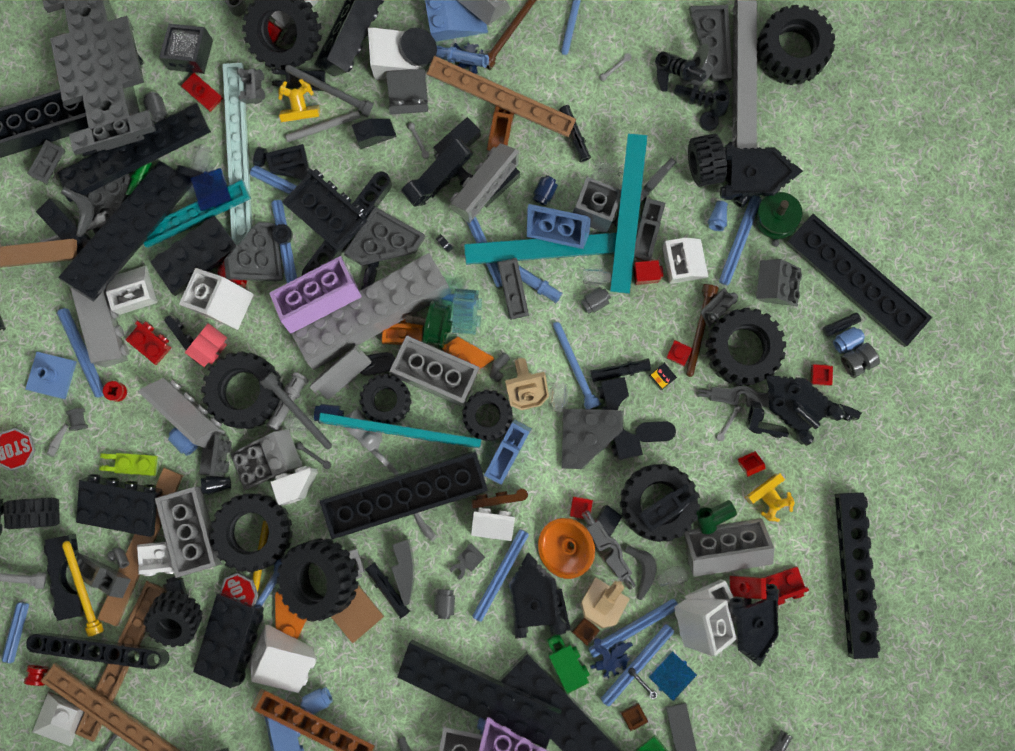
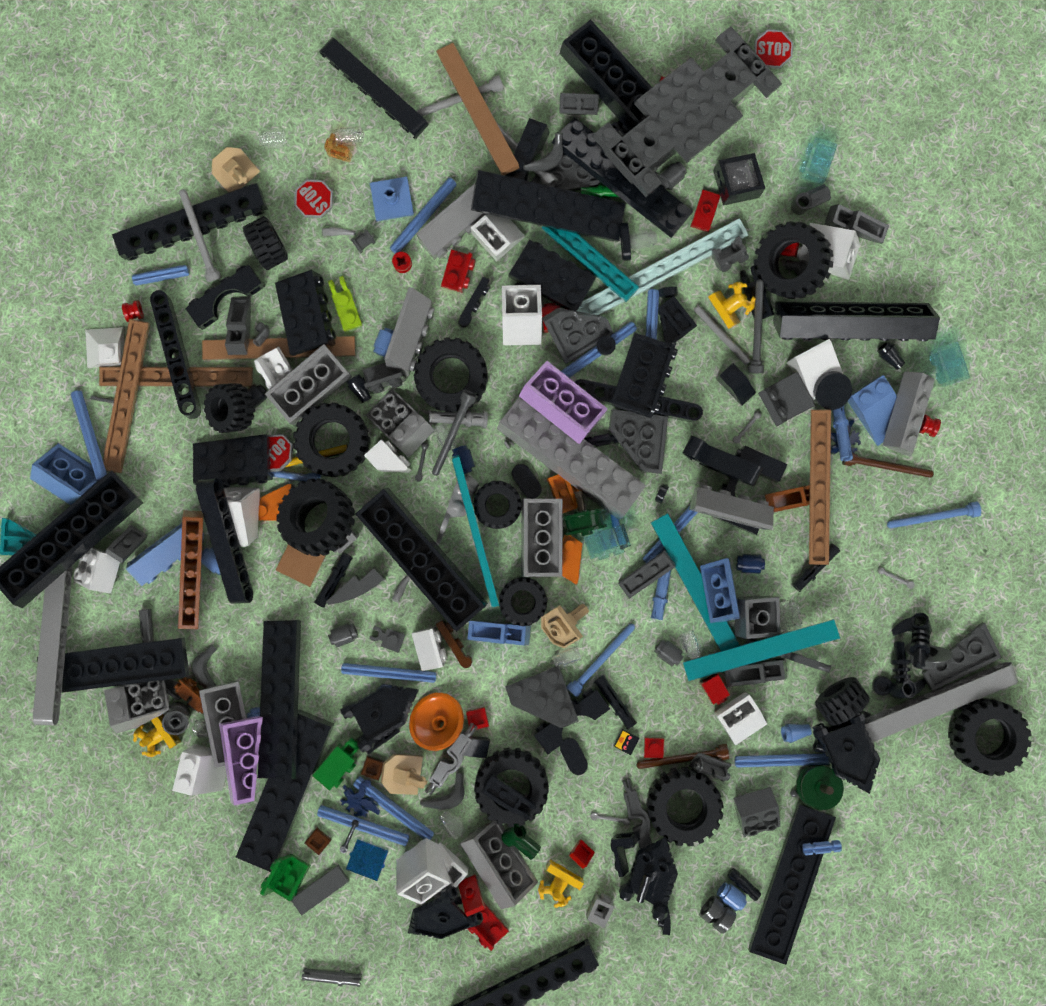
camera: 70 degrees right, 5 degrees up
(93, 625) = (194, 340): yellow piece -> none
(206, 345) = (476, 325): coral brick -> none
(211, 189) = (618, 263): clear blue piece -> none
(298, 679) = (224, 540): none -> black beam
(341, 372) = (505, 454): light grey panel -> none
(497, 365) = (571, 589): dark grey arm -> none
(818, 471) = (602, 916): none -> light grey brick
(821, 375) = (689, 884): red plate -> none
(836, 237) = (822, 847): none -> medium blue axle

